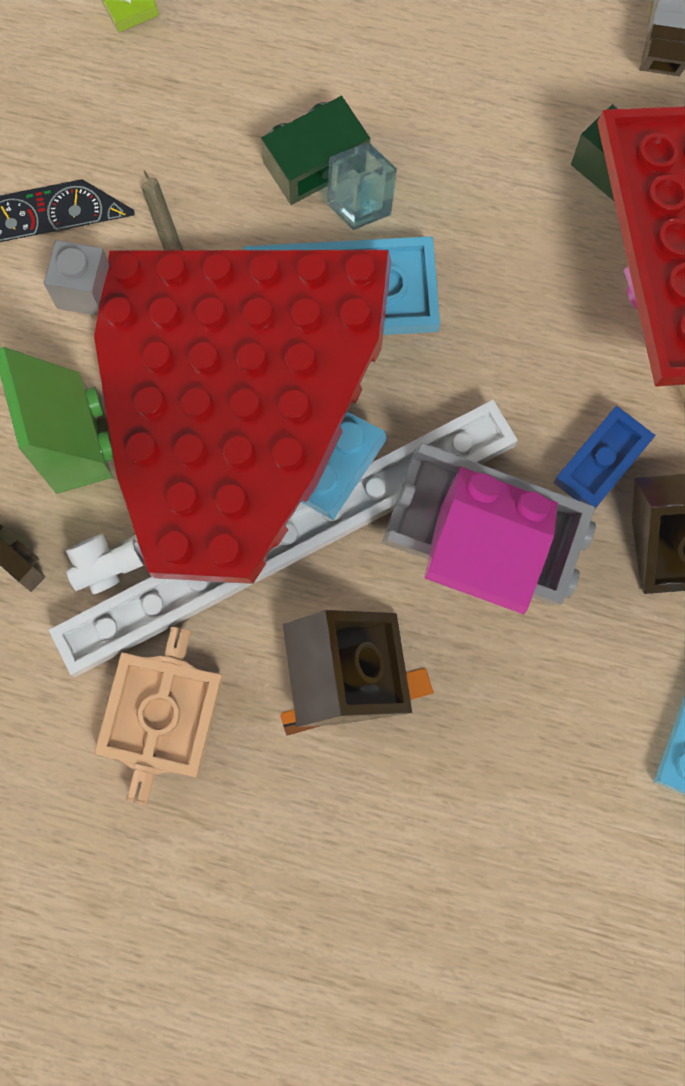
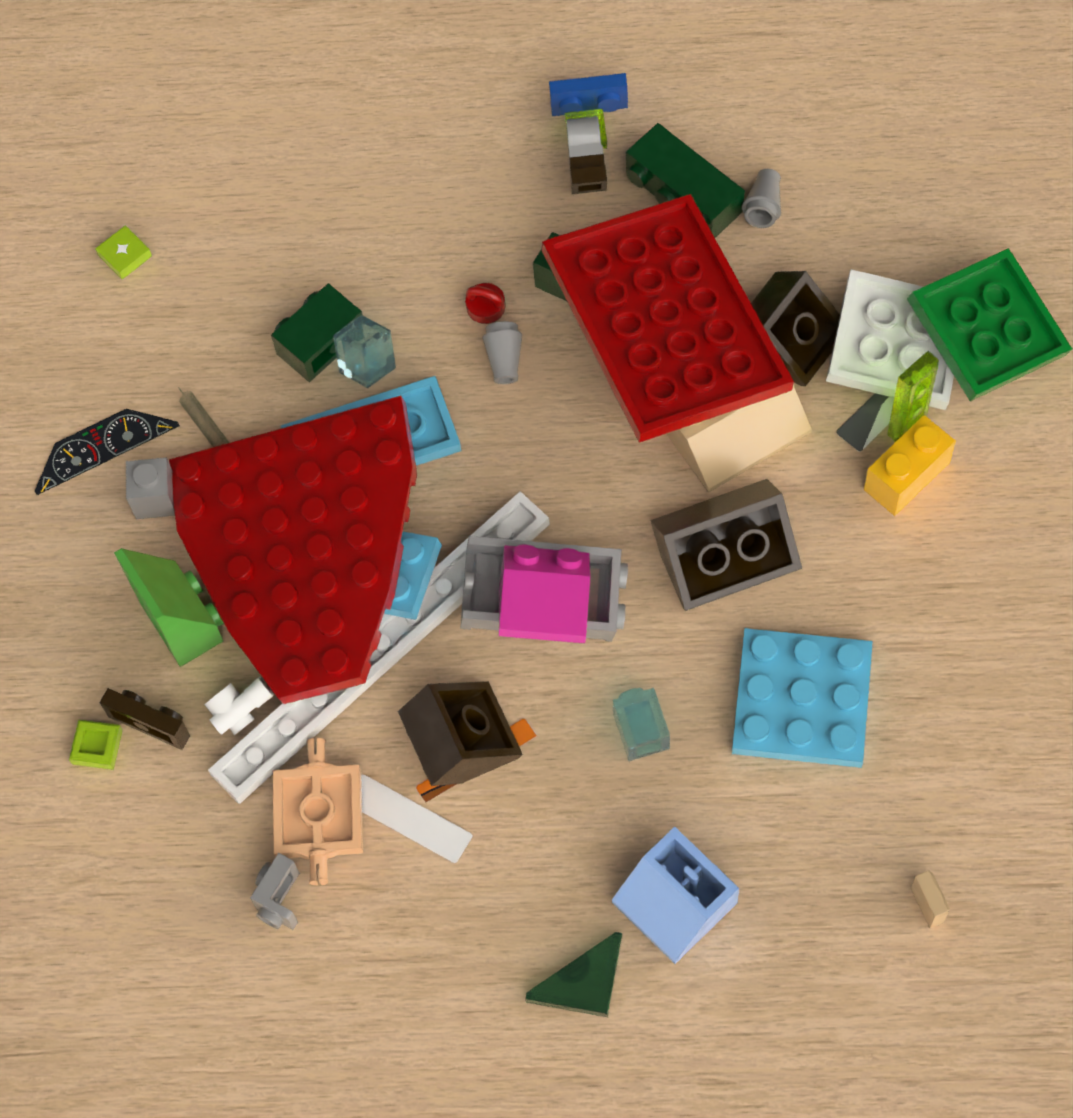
camera: 10 degrees left, 10 degrees down
(83, 790) = (272, 887): none -> light grey bracket
(266, 754) = (413, 820): none -> white sticker
(411, 1016) = (584, 983): none -> clear green tile
(510, 168) = (485, 303): none -> red tile
(517, 227) = (503, 350): none -> light grey cone
(548, 951) = (676, 895): none -> light blue slope
(560, 718) = (641, 723): none -> clear light blue brick
(604, 458) = (623, 512): blue plate -> none

